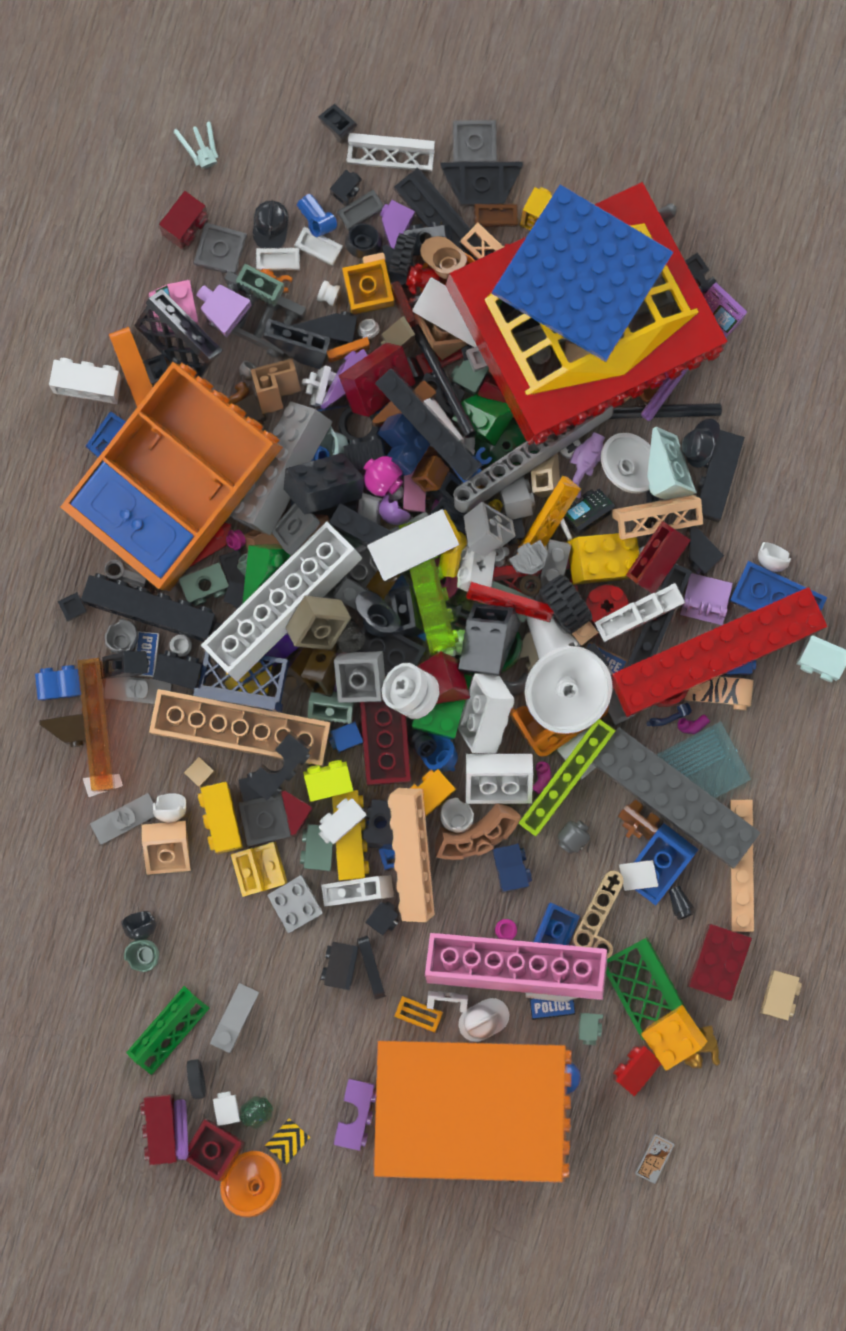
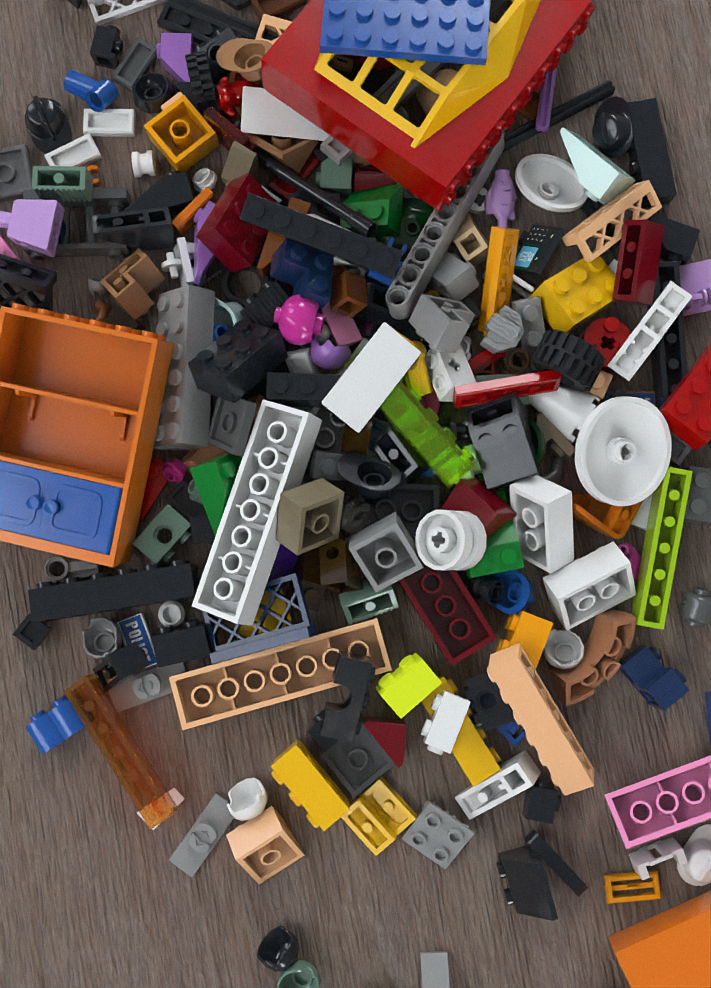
camera: 25 degrees left, 0 degrees up
(67, 728) = (89, 771): dark brown slope -> none
(199, 772) = (260, 742): tan slope -> none
(318, 852) = (435, 769): sand green brick -> none
(345, 737) = (400, 624): blue brick -> none
(506, 929) = (677, 745): dark pink plate -> none

